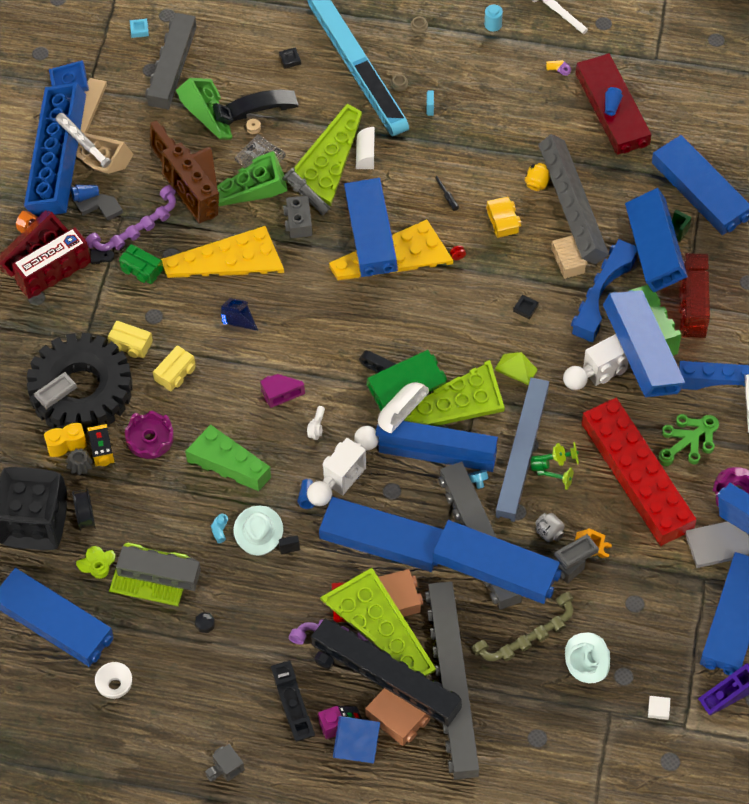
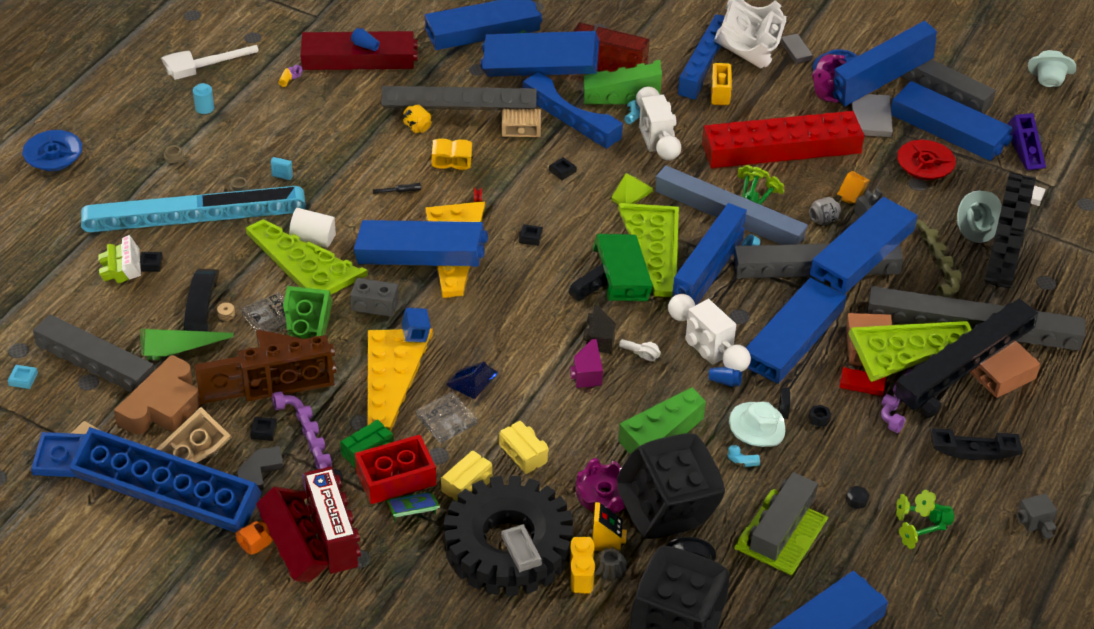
camera: 75 degrees left, 15 degrees down
(78, 135) = (166, 441): light grey piece -> none
(84, 192) = (242, 467): blue cone -> none
(89, 312) = (412, 504): none -> piece
(96, 562) = (751, 577): lime plate -> none
(110, 672) = (919, 581): white piece -> none
(117, 289) = (395, 469): none -> red brick
(136, 115) = (161, 398): none -> medium nougat brick
(139, 194) = (263, 428): none -> black tile
(140, 471) = (670, 485): none -> black piece
(193, 309) = (446, 417): none -> clear tile
(200, 686) = (926, 505): none -> lime plant
(273, 253) = (416, 325): none -> blue brick
(276, 38) = (120, 261): none -> hips
(286, 575) = (819, 415): none -> black tile
(299, 185) = (338, 283): dark grey pin -> none
(324, 387) = (600, 328): none -> clear smoke slope
(329, 718) = (1005, 415): magenta slope -> none
(356, 739) = (1034, 400): blue tile -> none
(401, 406) = (666, 259): white brick -> none
(428, 307) = (531, 235): none -> black tile
(540, 672) = (1010, 230): none -> black tyre
(576, 552) = (873, 184): dark grey tile -> none
(643, 343) = (662, 81): brick -> none
(671, 589) = (926, 159): none -> red piece
(689, 437) = (747, 89): bright green plant -> none
(694, 400) = (721, 84): none -> yellow brick

